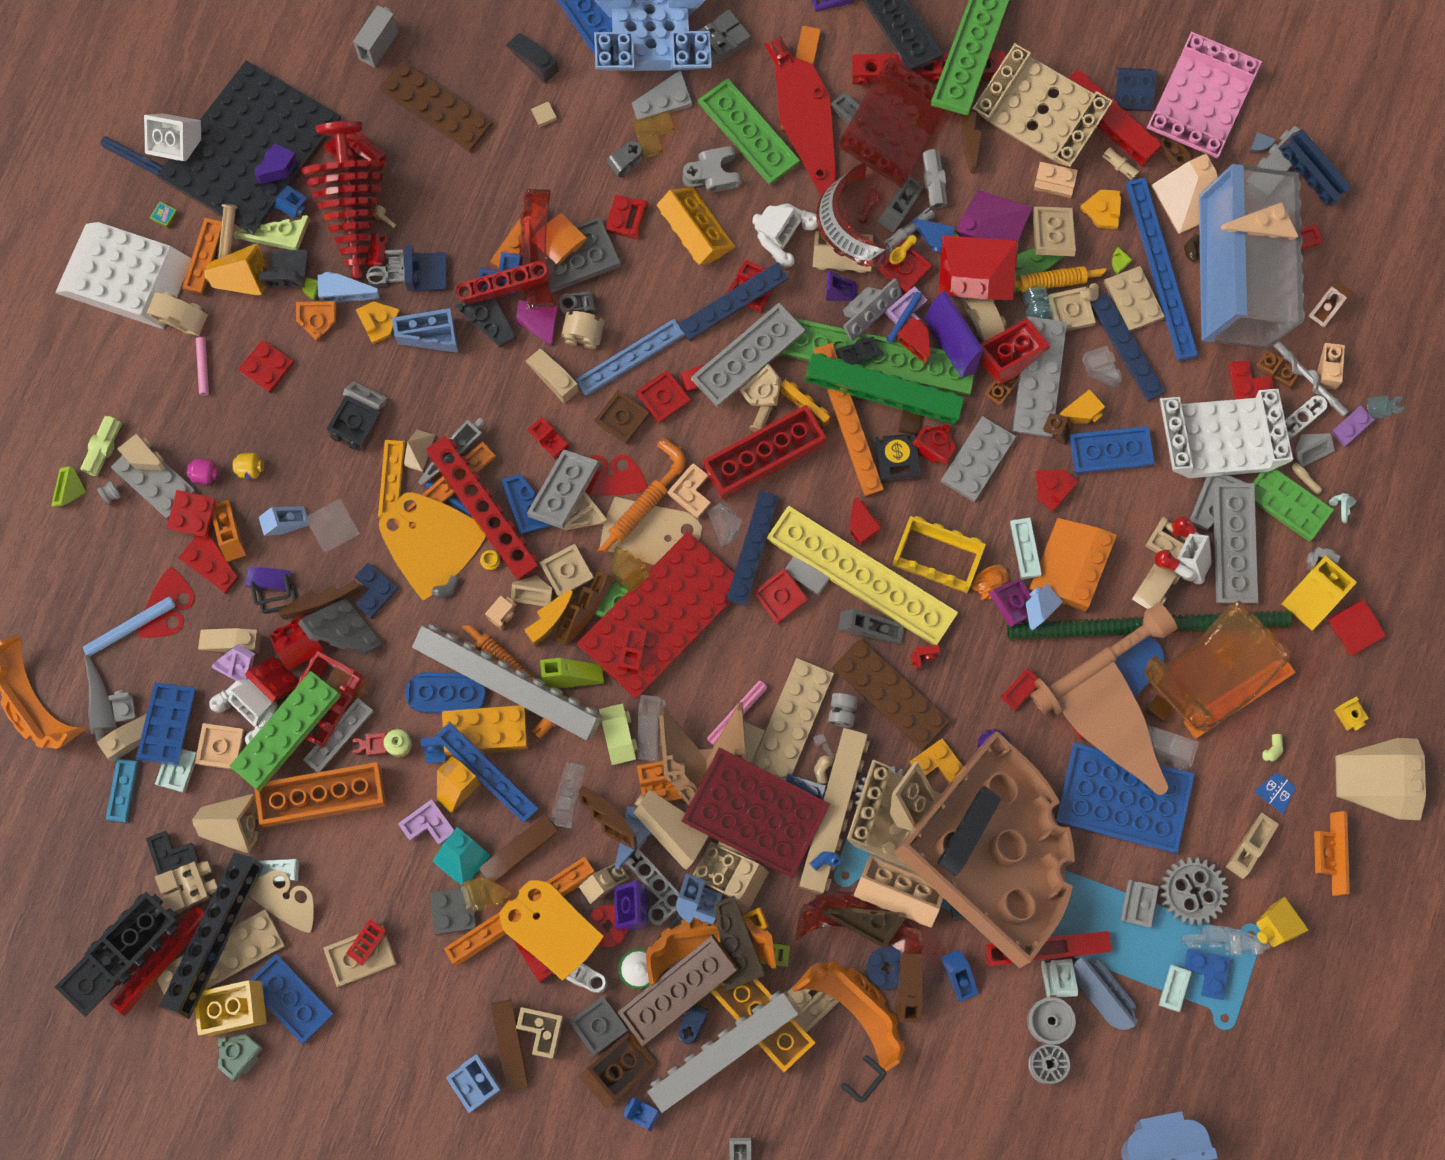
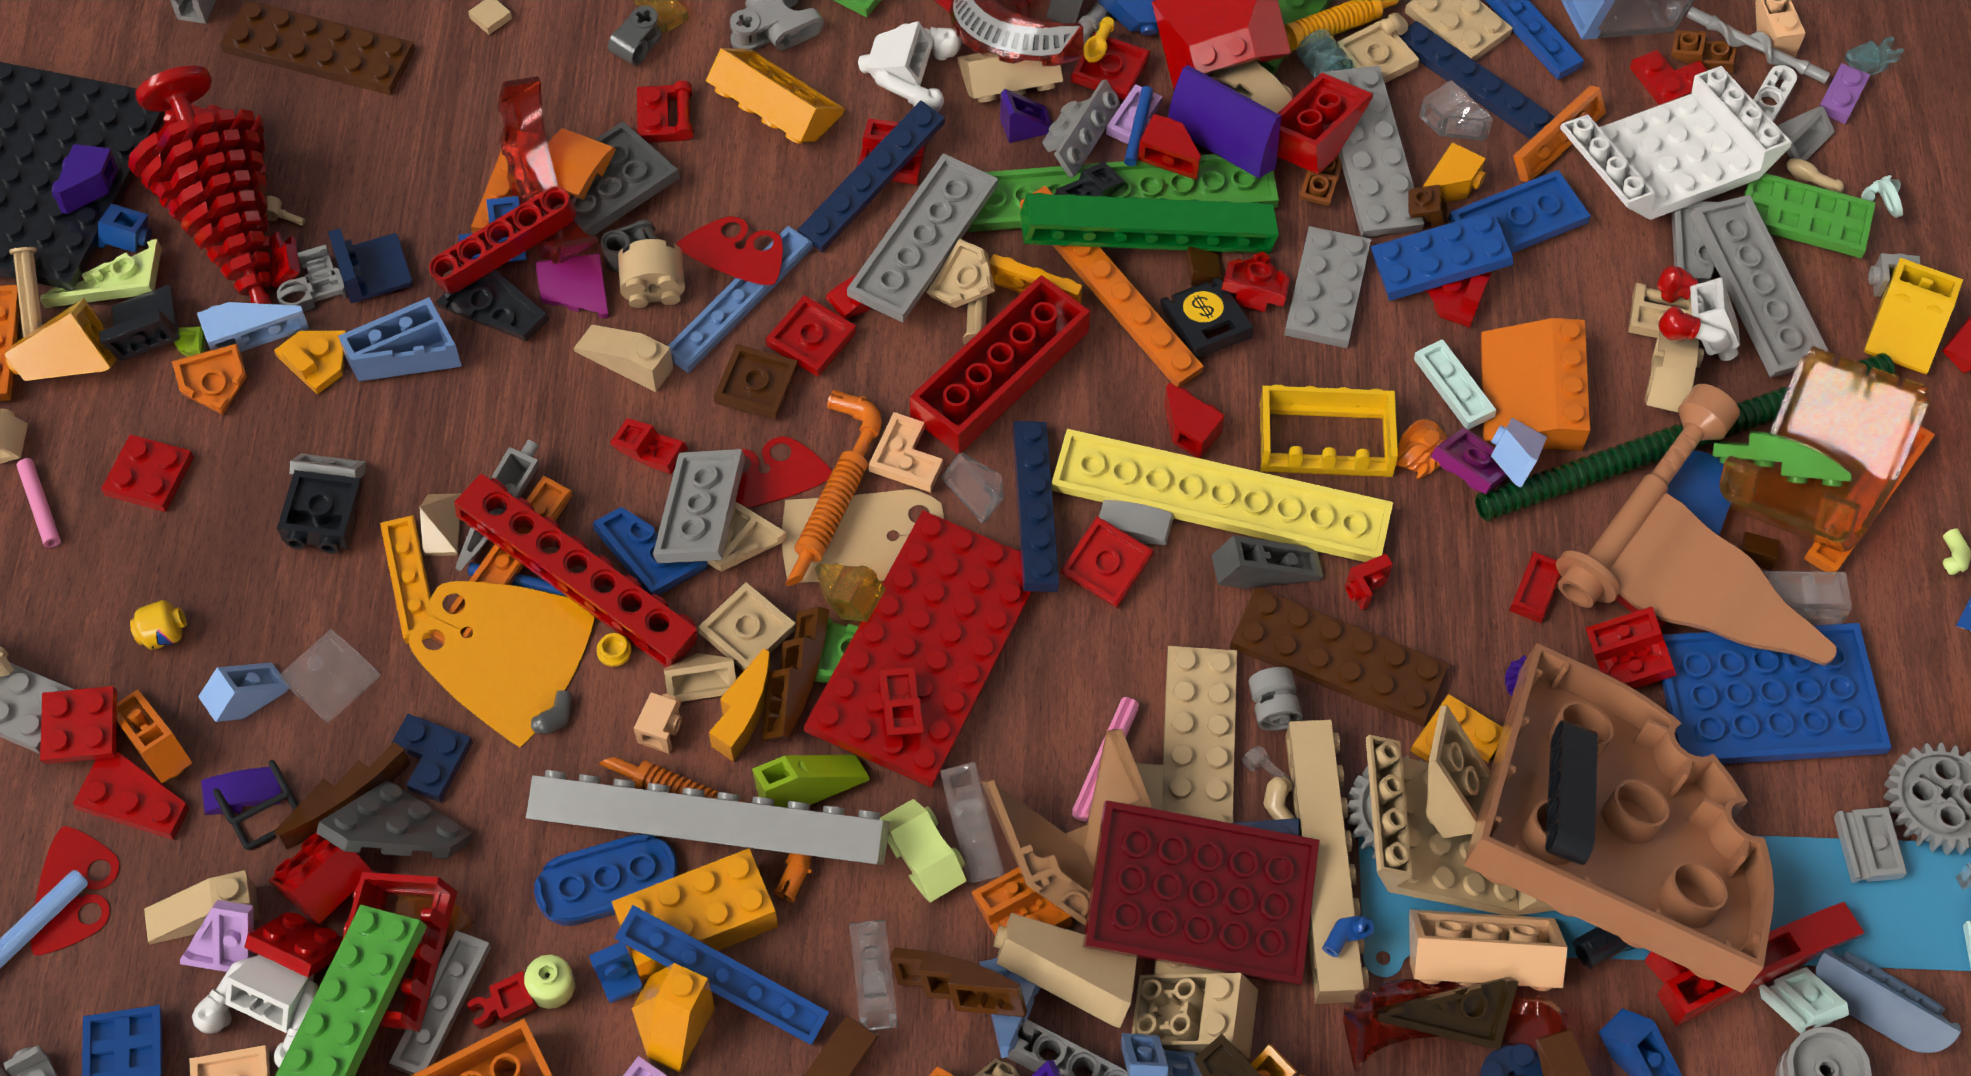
camera: 20 degrees left, 15 degrees down
(202, 471) = (80, 655): dark pink head -> none
(639, 336) = (719, 252): none -> red piece
(1052, 462) = (1441, 255): none -> blue plate
(1055, 747) = (1632, 649): none -> red slope
(1151, 405) = (1551, 141): none -> orange plate
(1203, 664) = (1797, 458): none -> bright green slope

